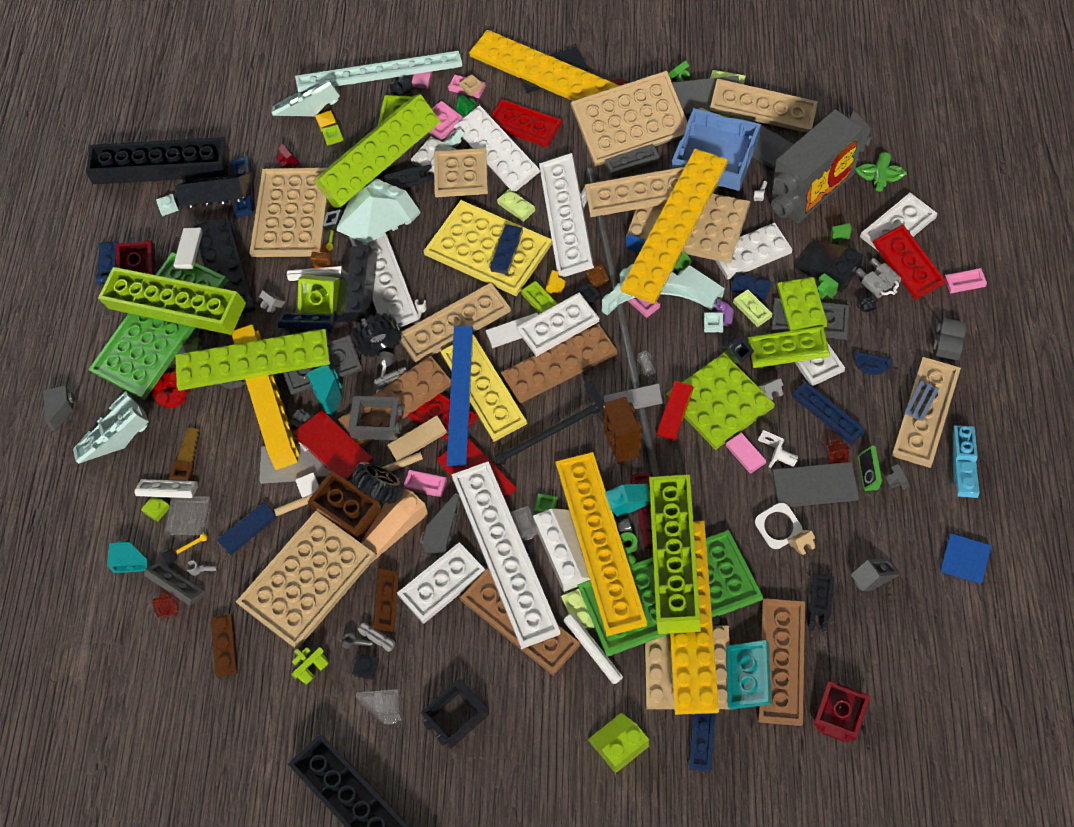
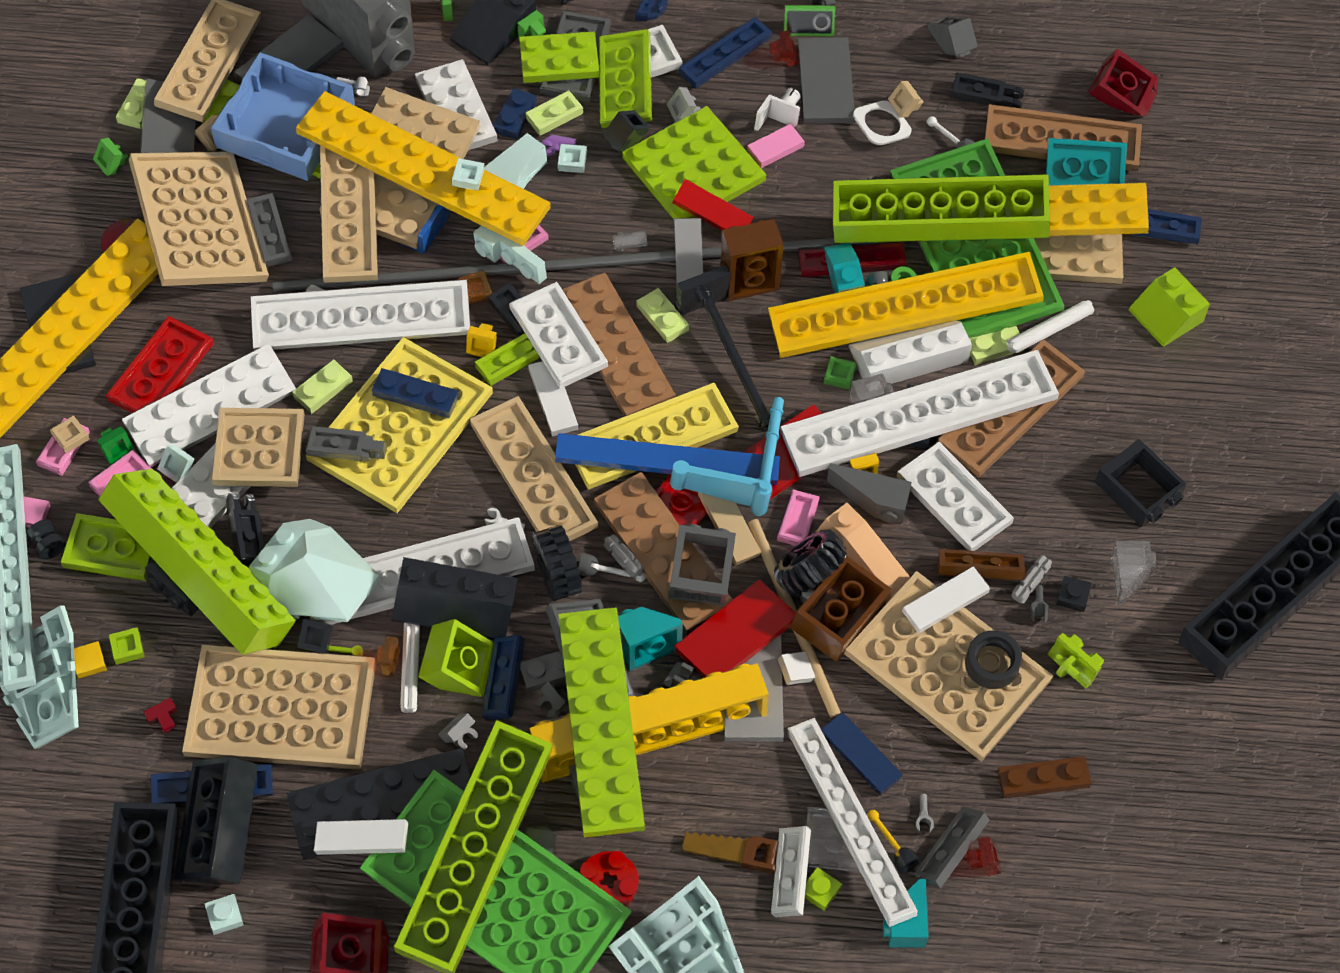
camera: 95 degrees left, 0 degrees up
(192, 519) = (852, 823): none -> white tile
(296, 589) = (1000, 640): none -> black tyre
(349, 571) = (946, 600): none -> white tile
(429, 448) = (734, 487): none -> medium azure piece
(463, 215) = (344, 444): none -> dark grey hinge
(463, 520) = (865, 463): none -> yellow tile
(578, 394) = (662, 315): none -> yellowish green plate
(663, 244) = (468, 174): none -> light aqua plate
(763, 584) = (932, 121): none -> white hinge

